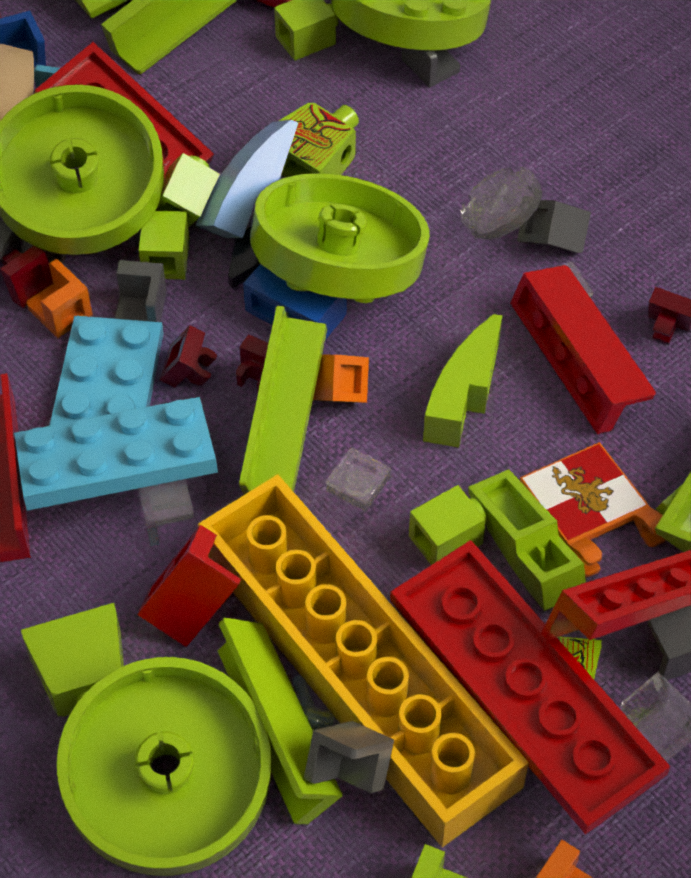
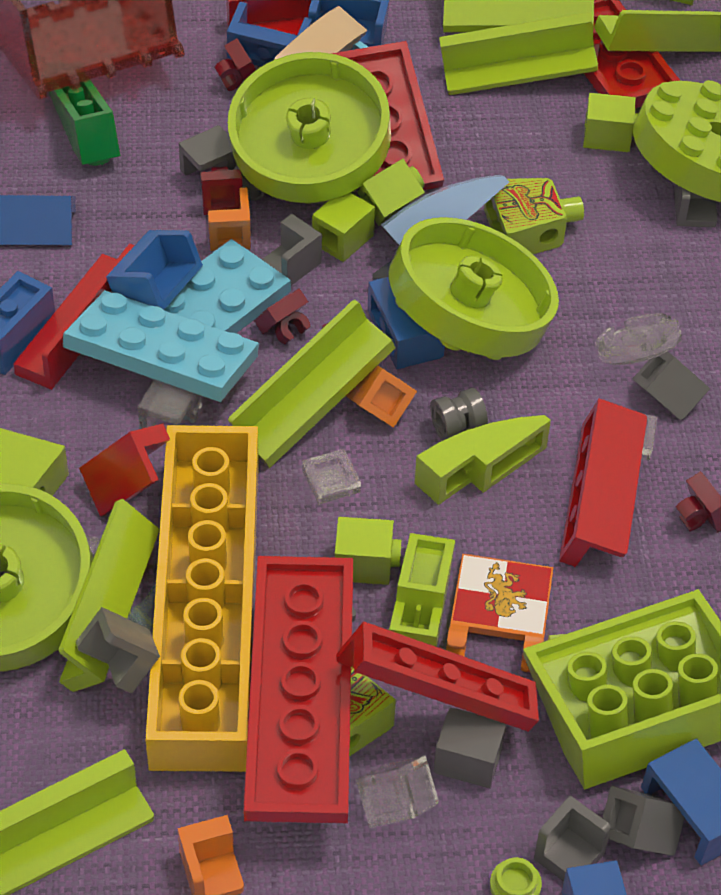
camera: 35 degrees right, 5 degrees down
(43, 382) = (156, 267): none -> blue panel
(411, 361) = (458, 413): none -> dark grey wheel

